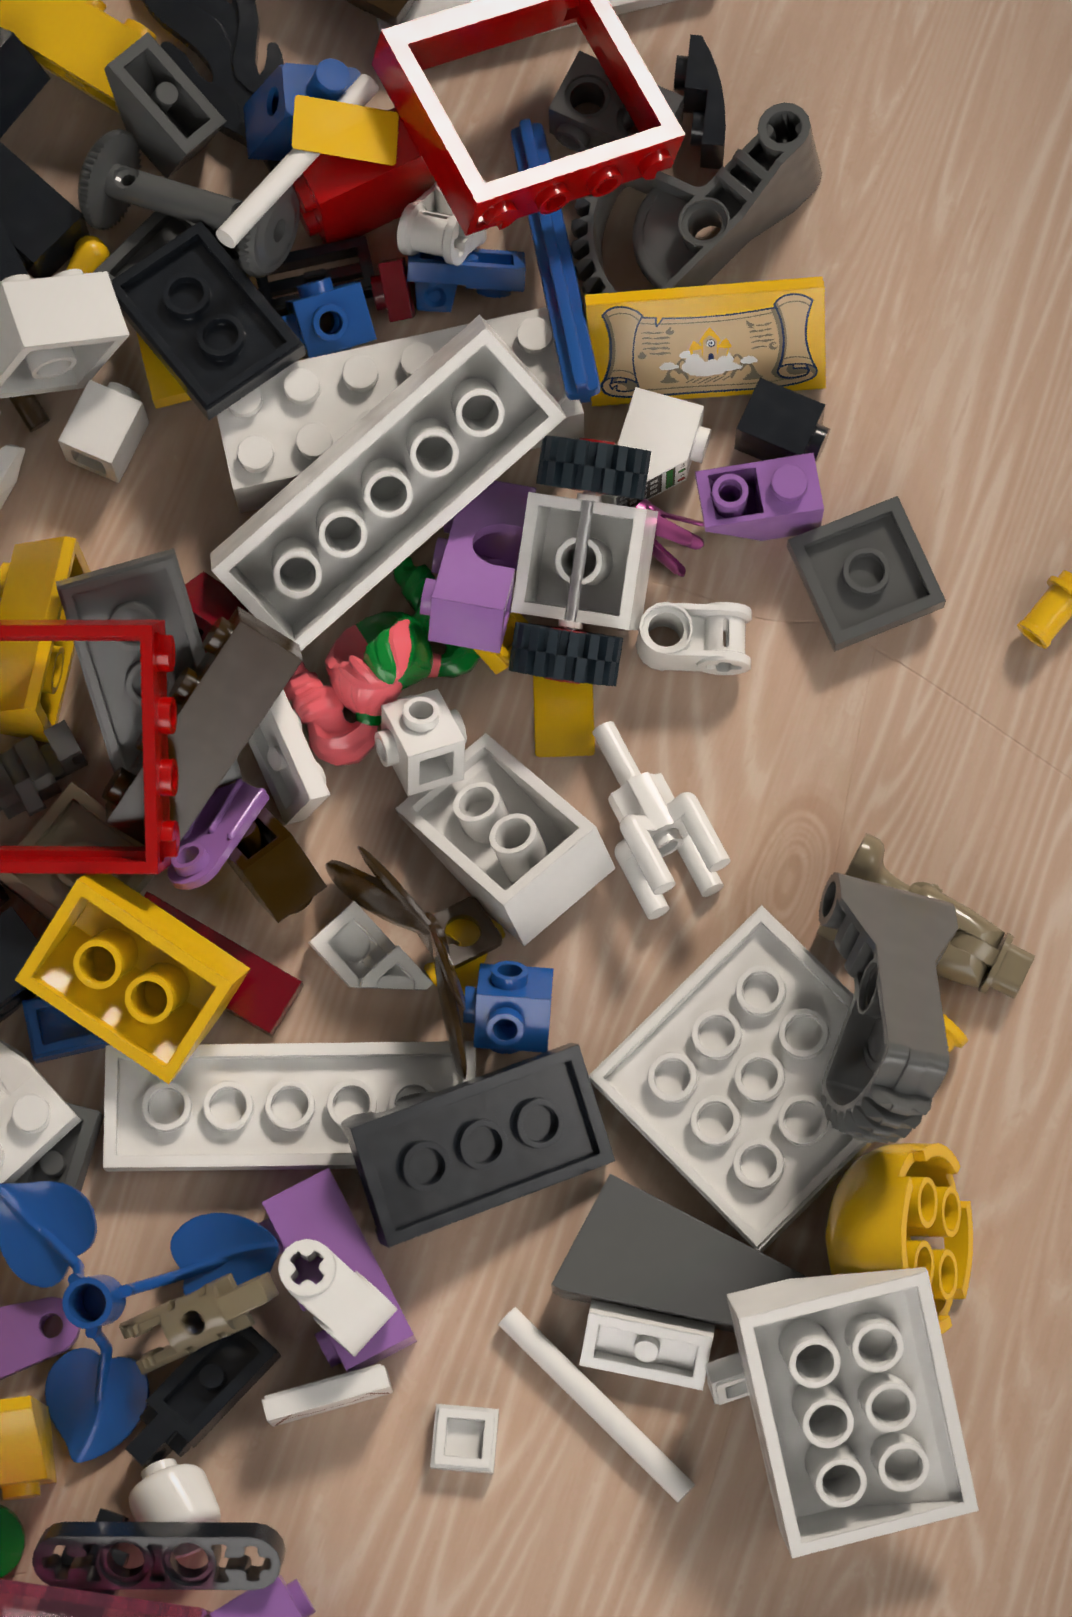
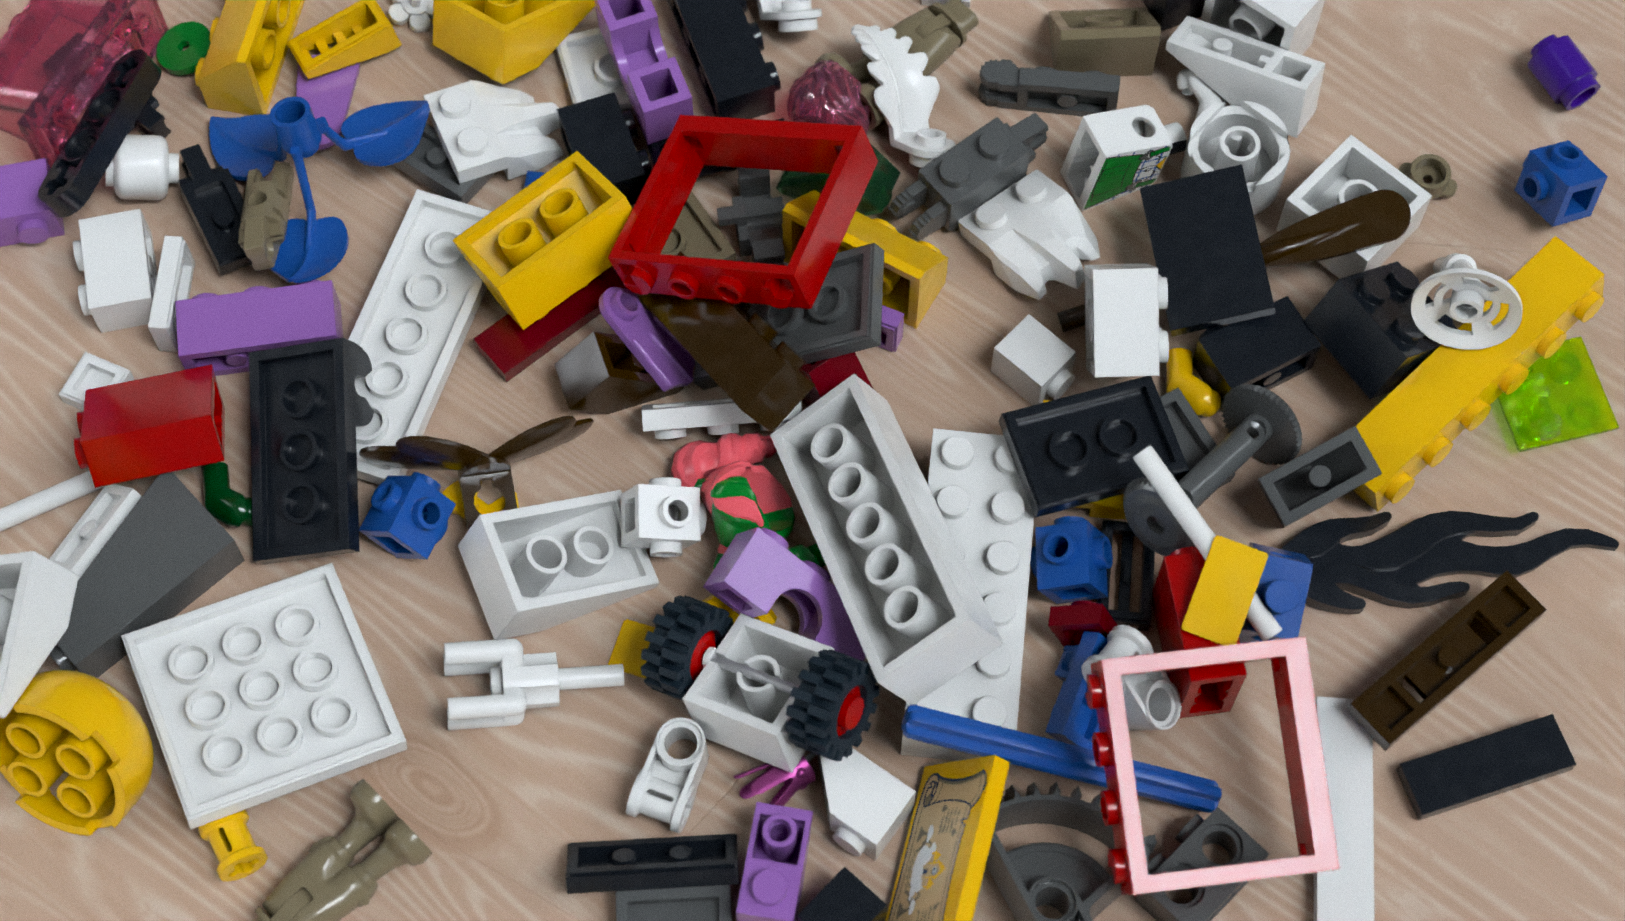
camera: 105 degrees right, 10 degrees down
(318, 1472) = (117, 268): none -> white brick
(342, 1301) = (227, 299): white piece -> none
(365, 955) = (508, 421): white slope -> none
(507, 1325) = (151, 426): none -> red brick
(557, 1228) = (221, 501): none -> dark green arm
(792, 623) = (652, 863): none -> black tile
(894, 1031) = (306, 812): dark grey arm -> none

